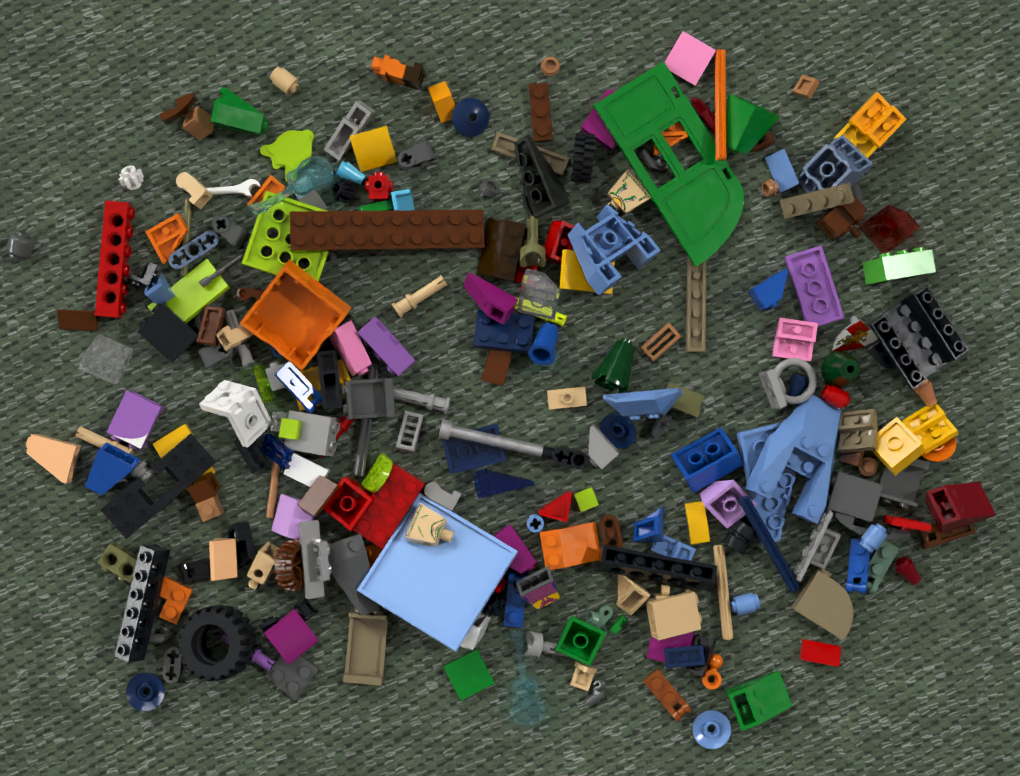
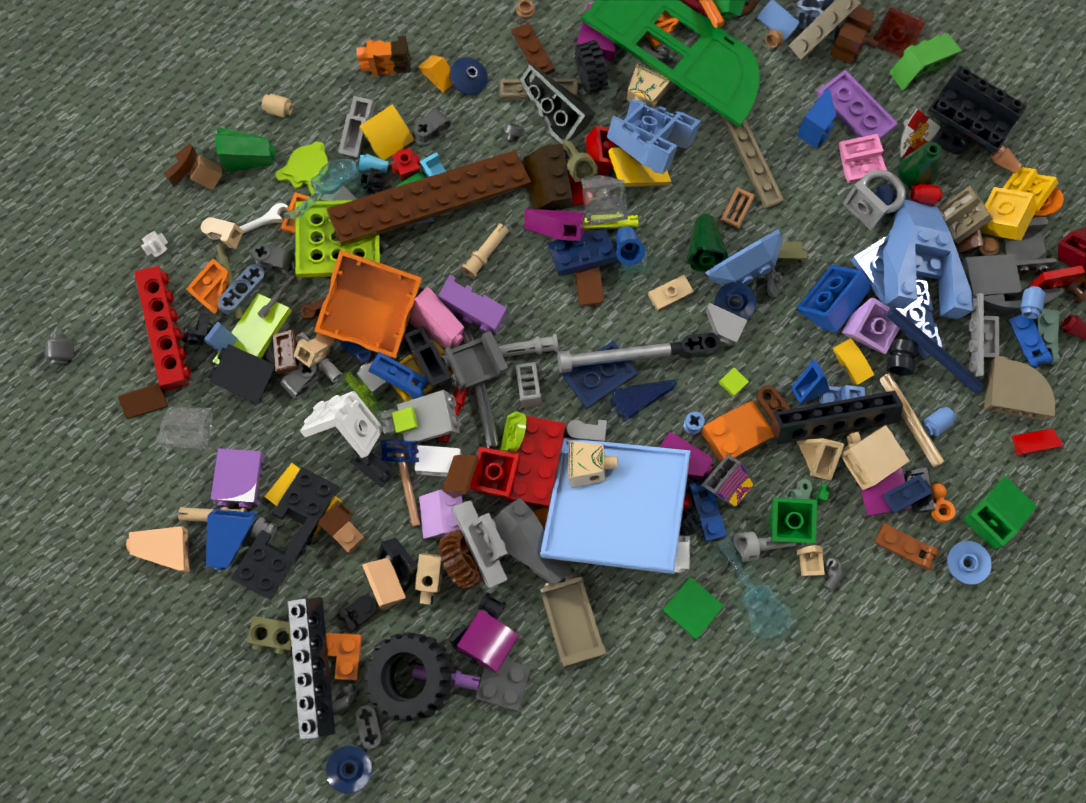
camera: 25 degrees left, 15 degrees down
(558, 508) = (712, 398): red slope -> none

